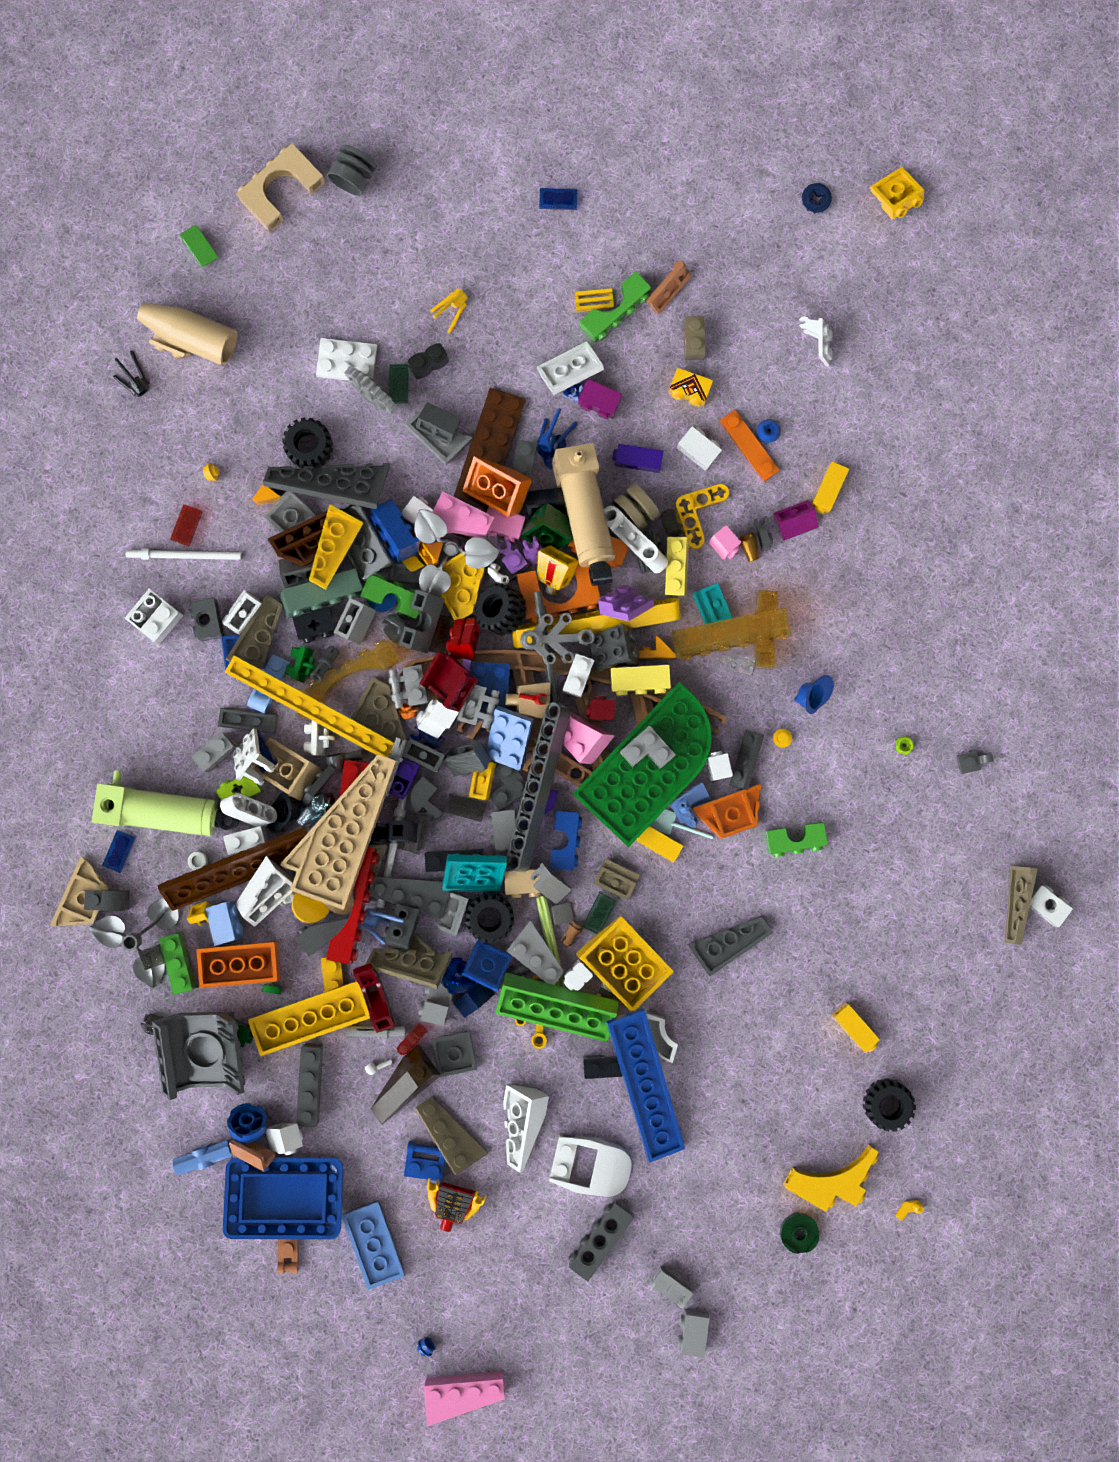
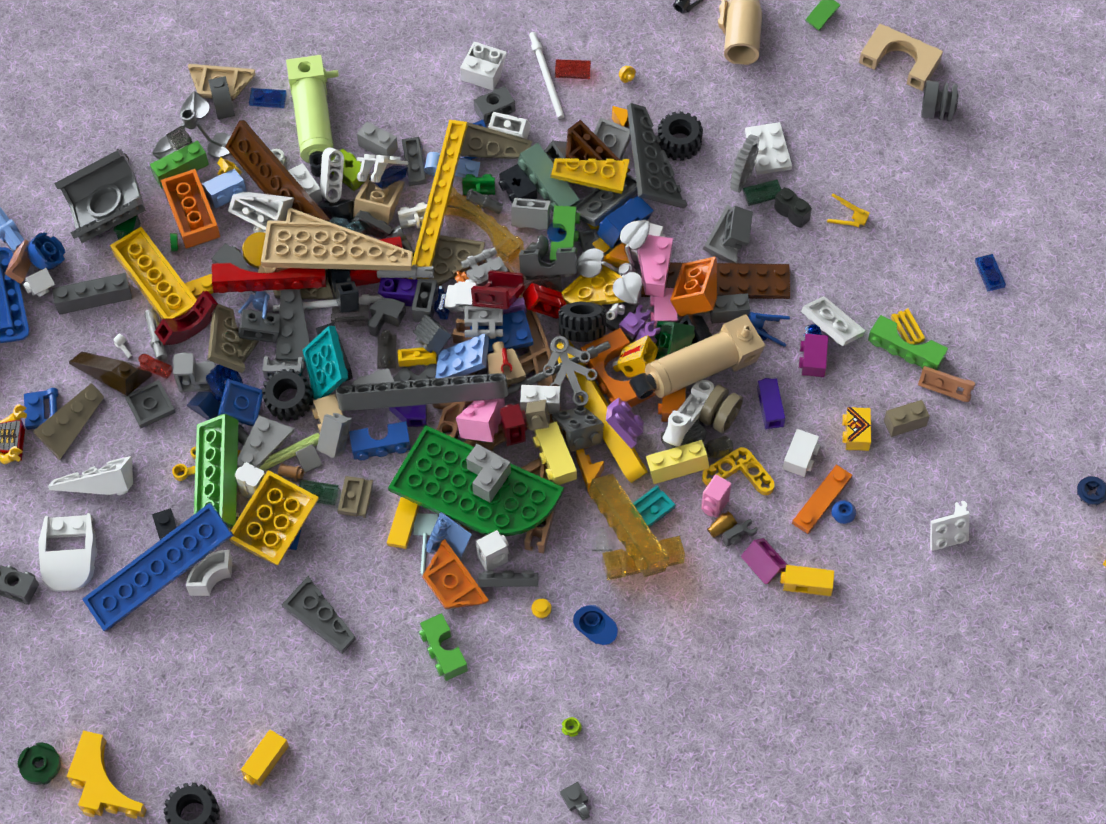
camera: 75 degrees right, 25 degrees down
(600, 683) = (537, 414): none -> dark tan brick

